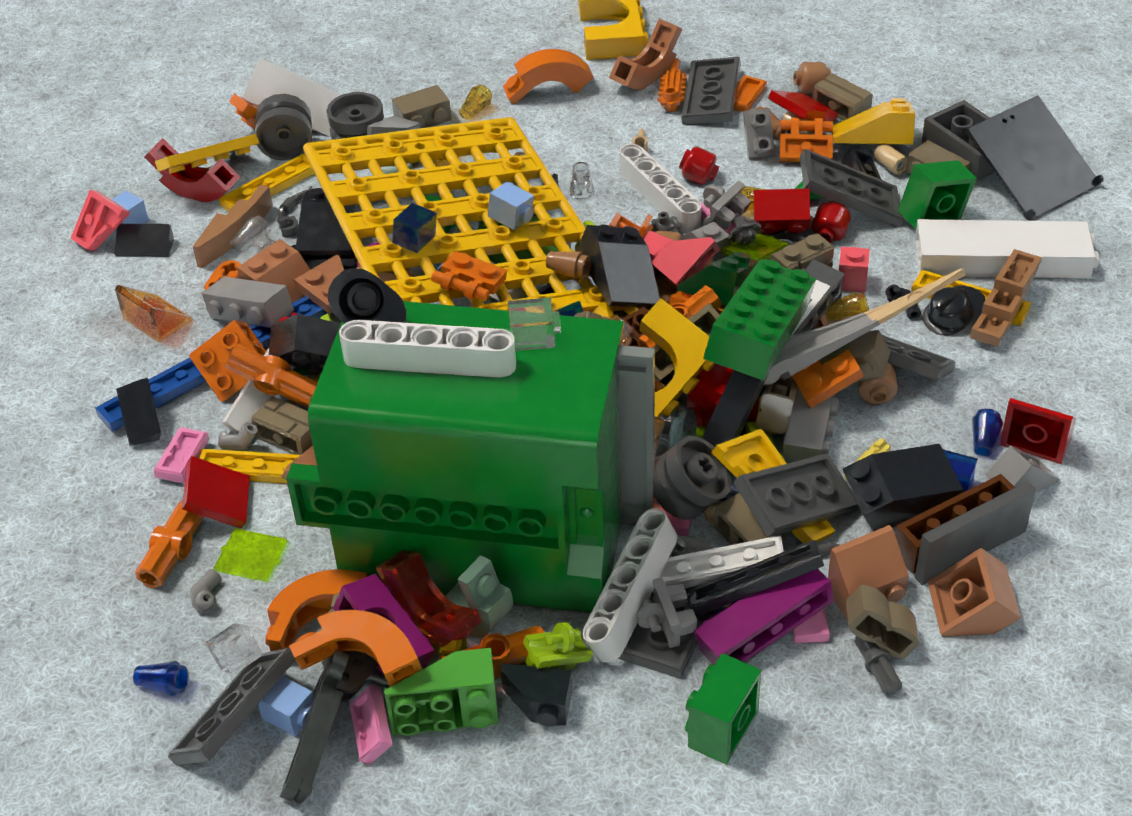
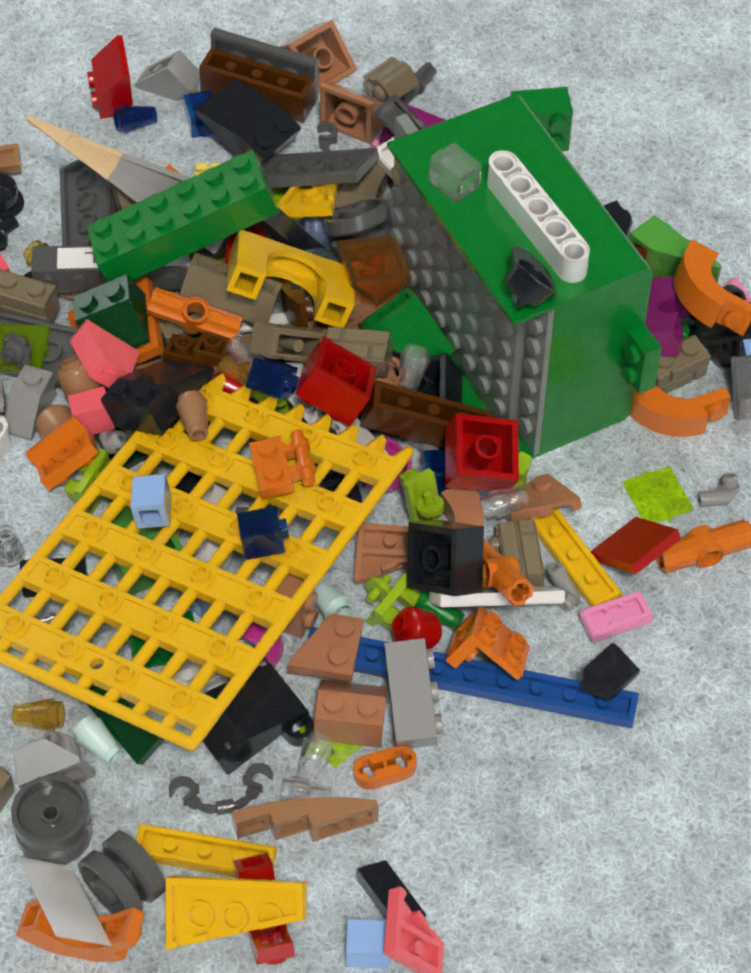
camera: 130 degrees left, 10 degrees up
(150, 313) = (478, 785): clear orange slope -> none
(665, 223) = (19, 445): dark grey plant -> none

